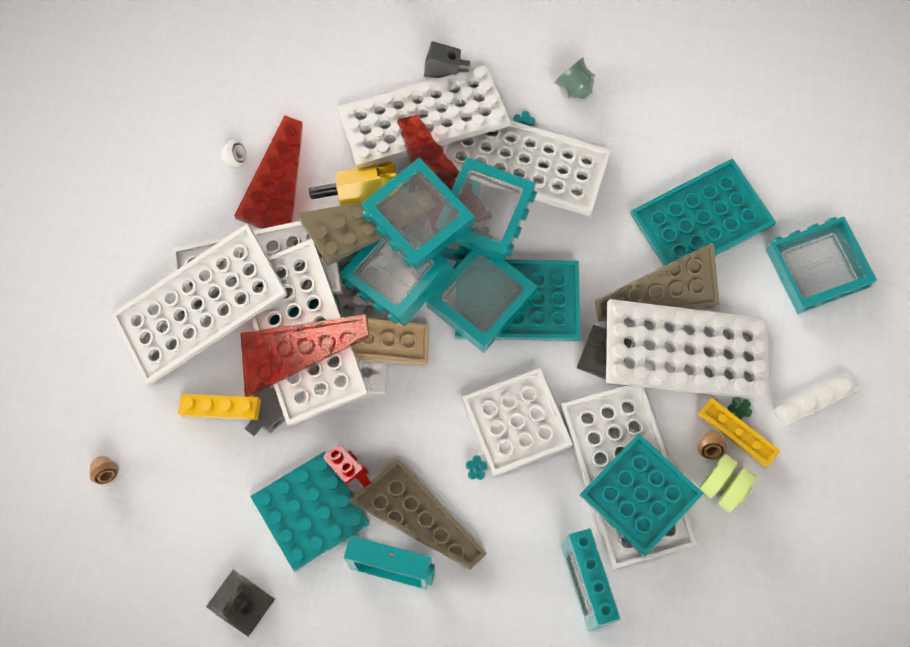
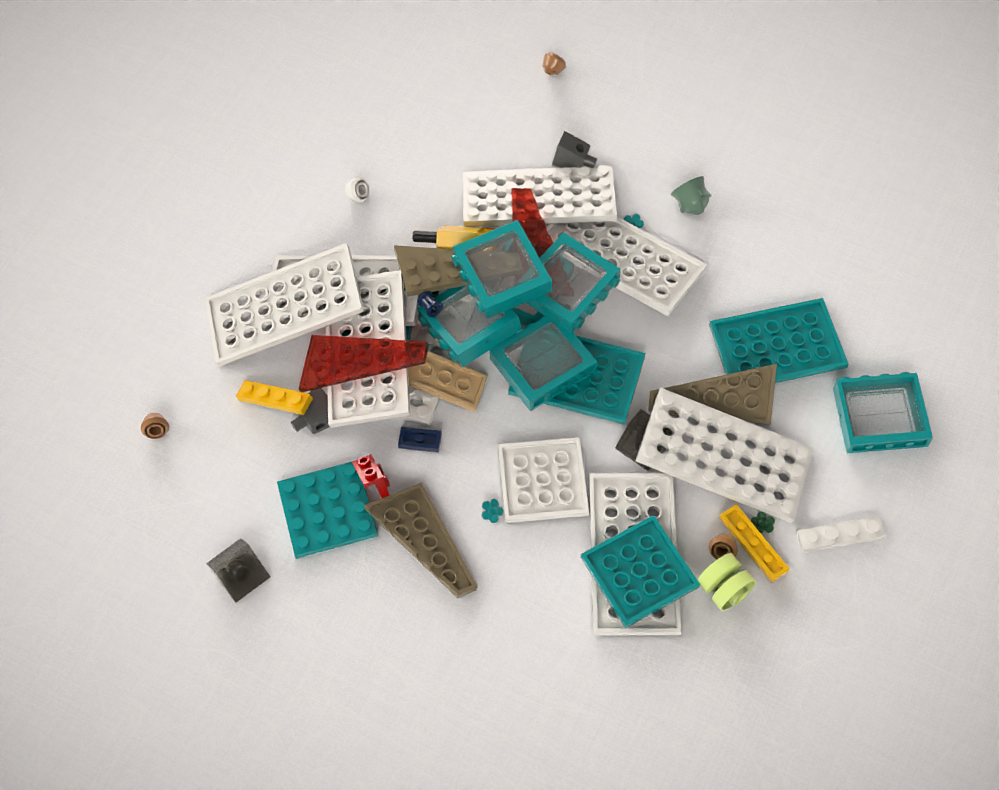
camera: 20 degrees right, 10 degrees down
(273, 188) = (388, 219): clear red wing -> none
(352, 272) = (429, 304): none -> dark blue bush
(381, 411) = (419, 439): none -> dark blue plate
(403, 567) = (374, 563): teal piece -> none
(589, 580) = (563, 629): teal piece -> none

